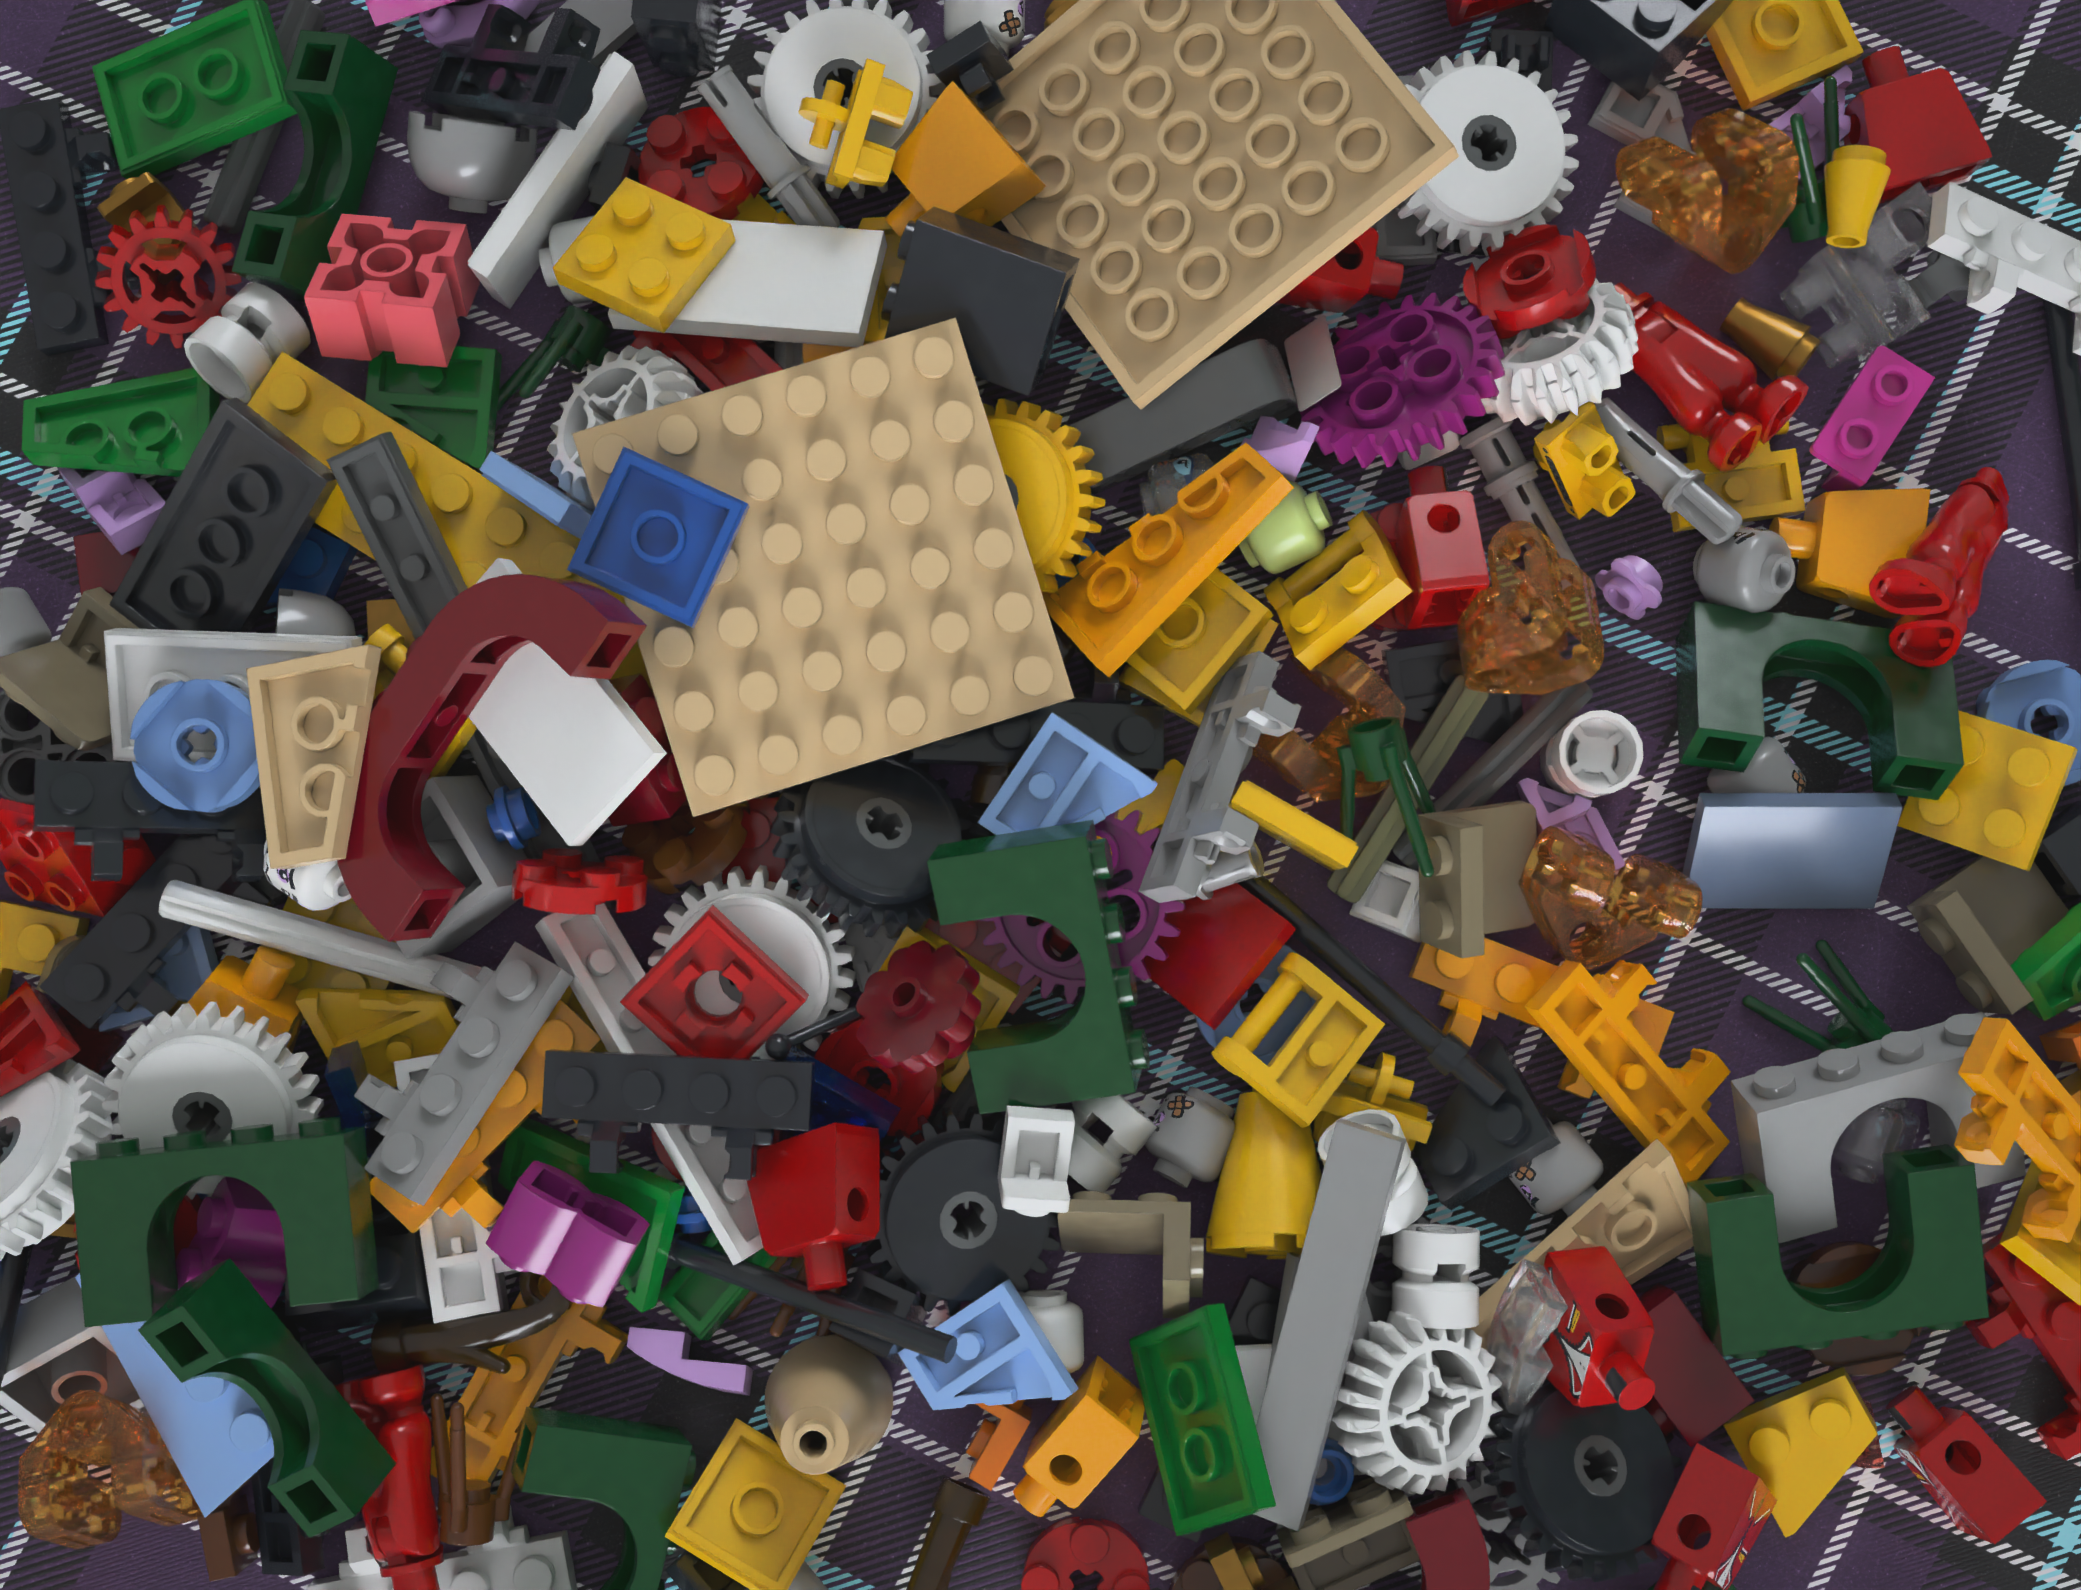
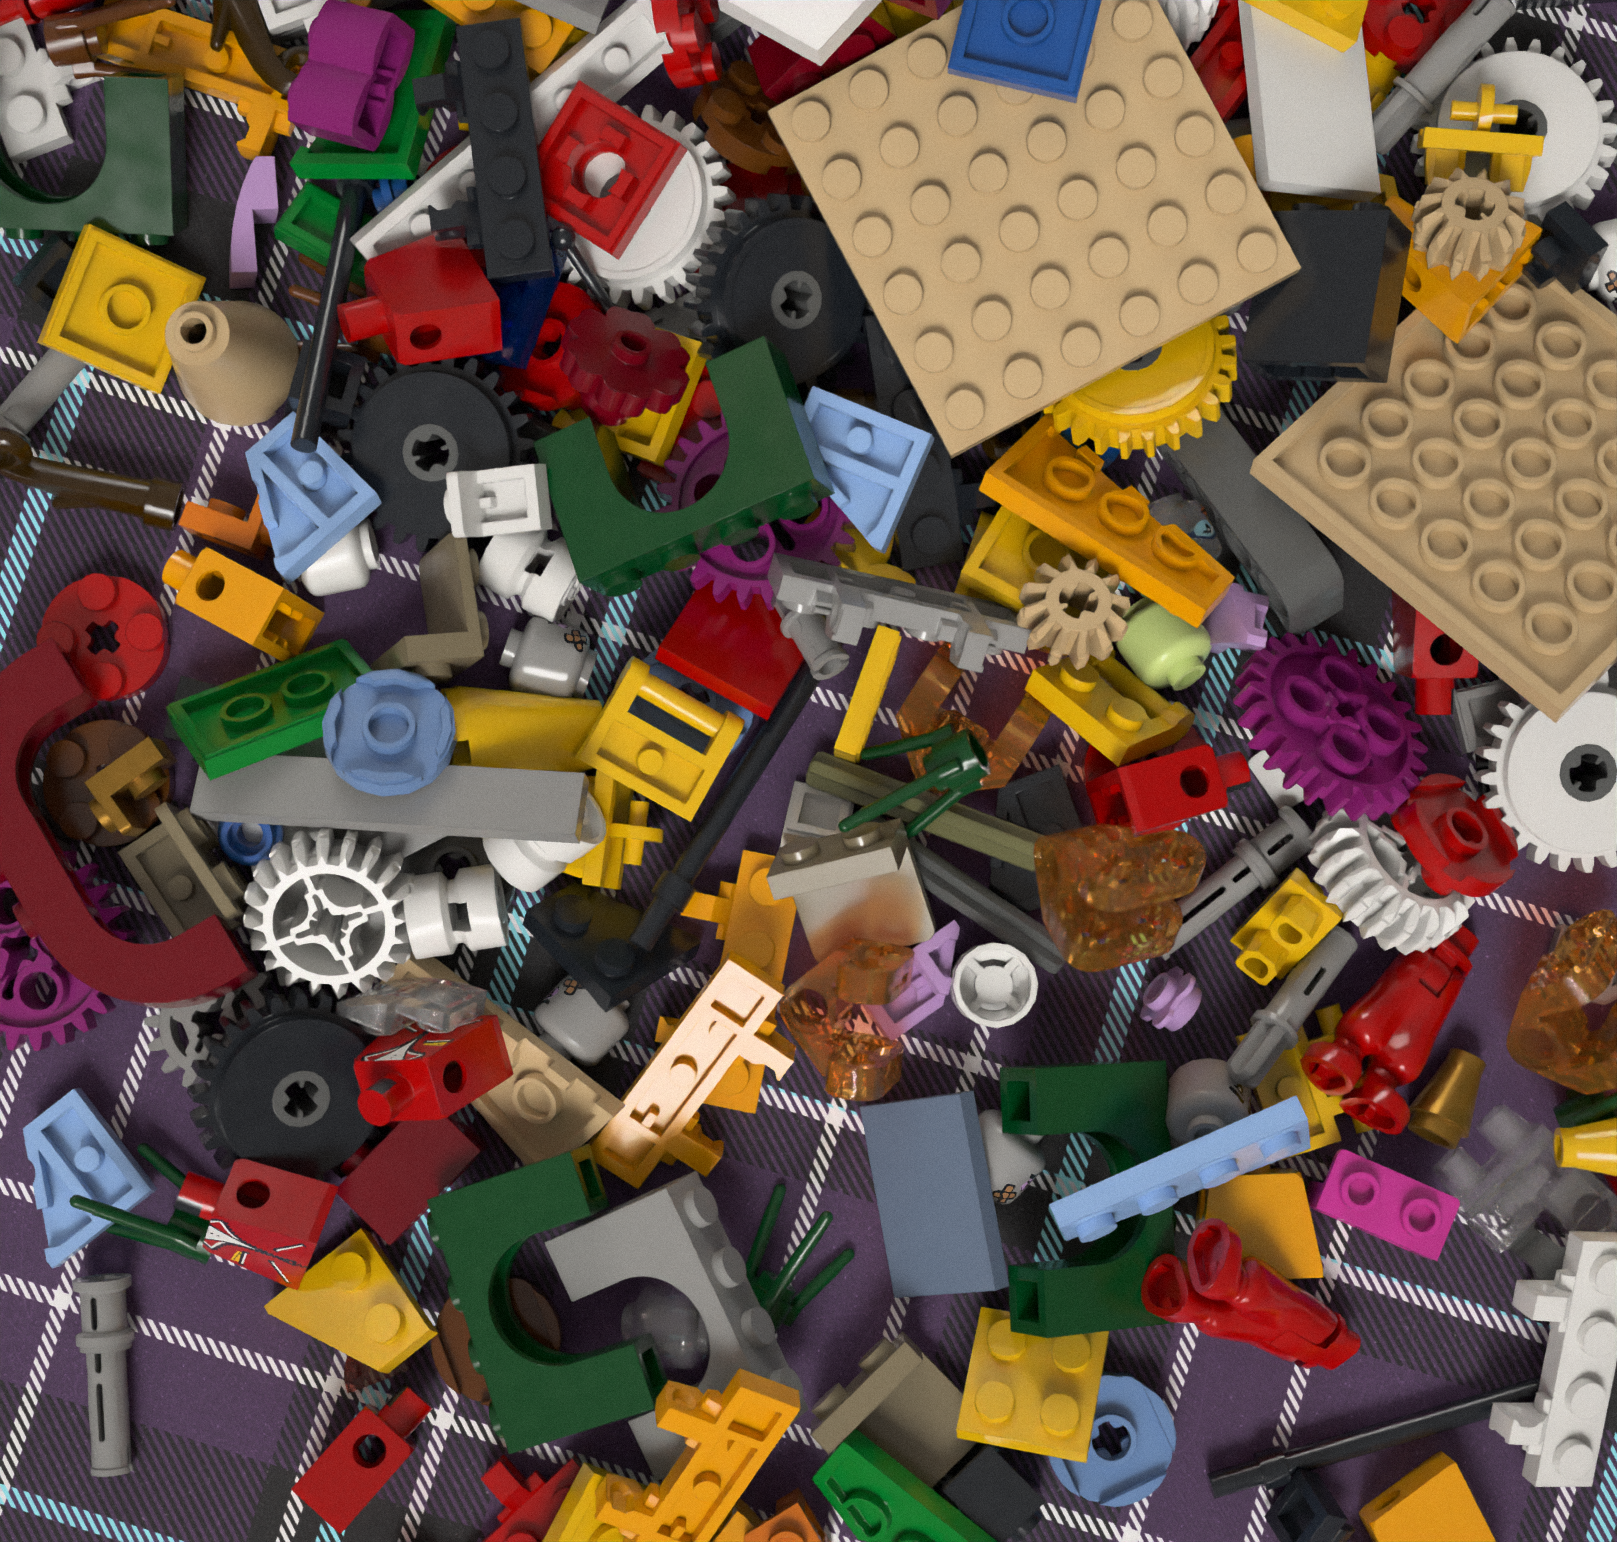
camera: 80 degrees right, 0 degrees up
(940, 148) = (1468, 224): none -> tan gear
(1246, 582) = (1077, 637): none -> tan gear
(1257, 1312) = (389, 732): none -> medium blue tile
(1312, 363) = (1333, 642): white sticker -> none
(1818, 573) = (1185, 1170): none -> light blue wing

